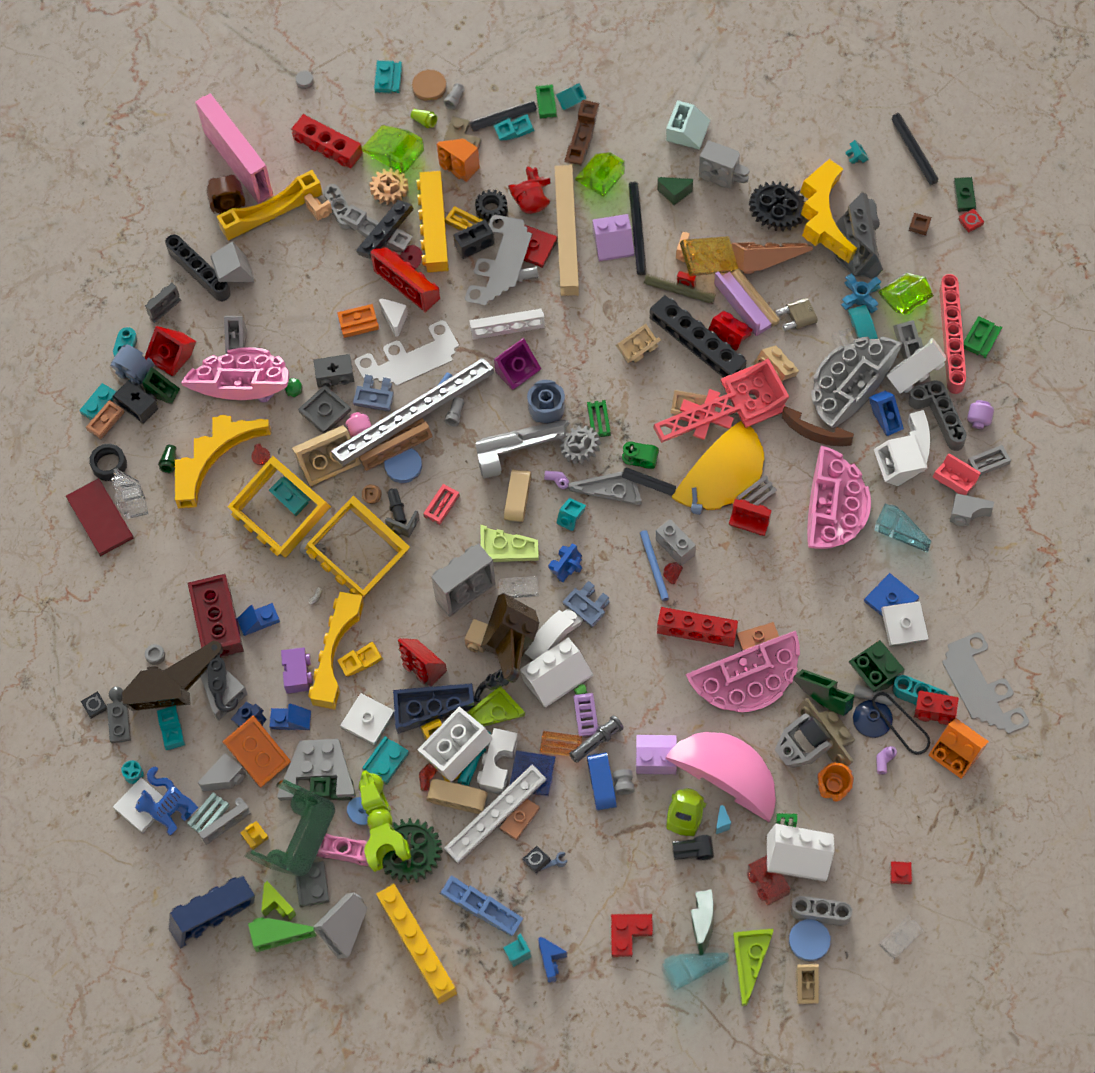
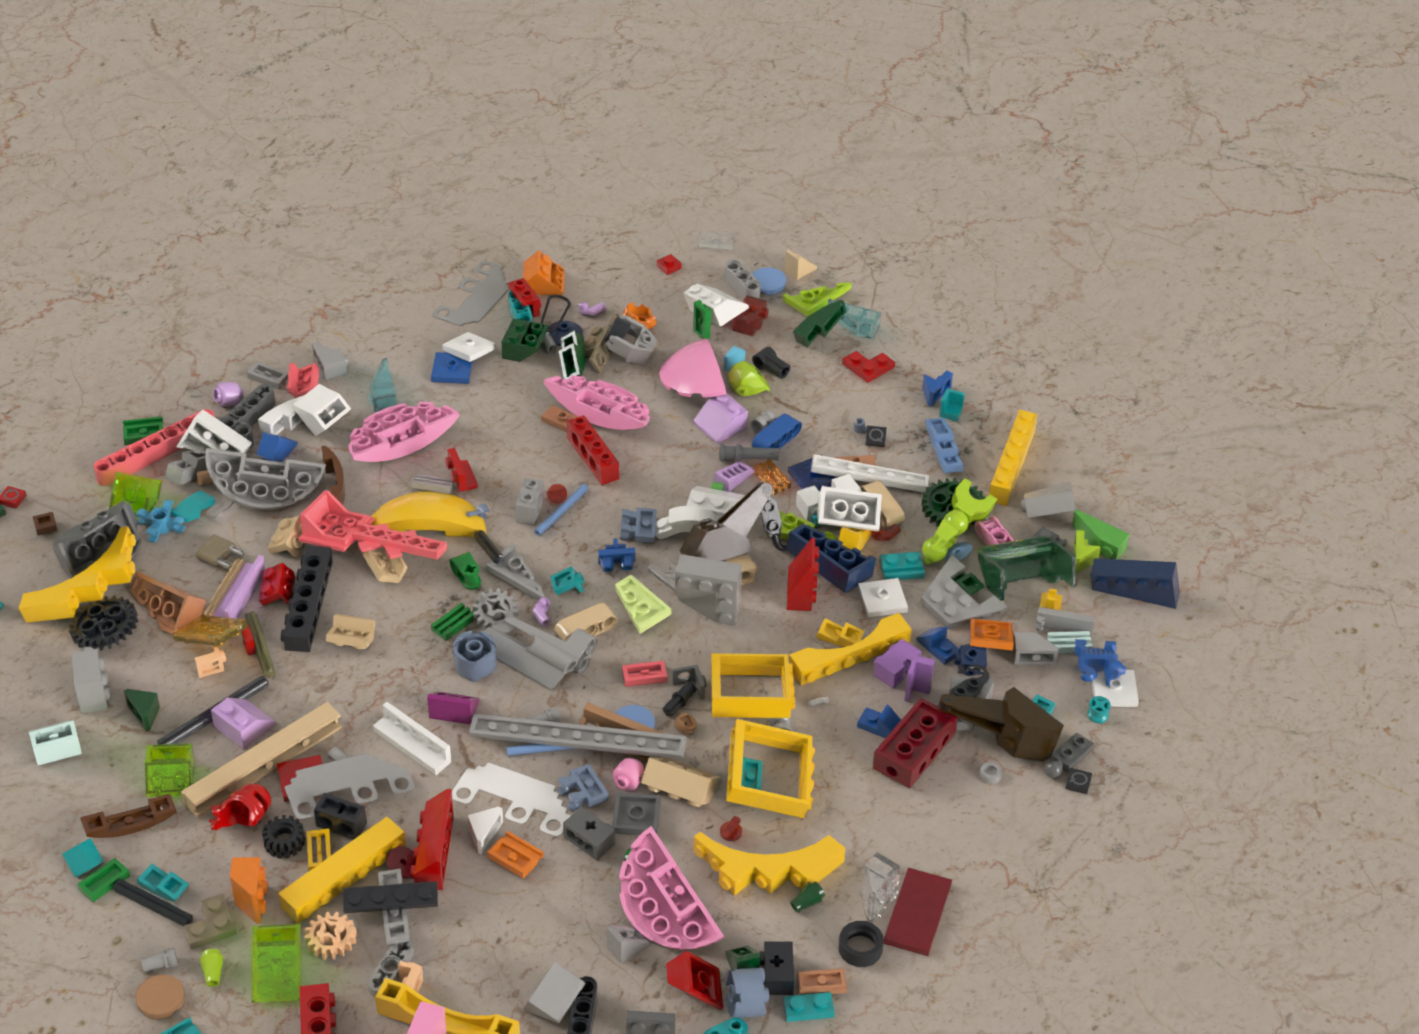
camera: 135 degrees left, 20 degrees down
(263, 666) = (919, 676): none -> medium lavender panel

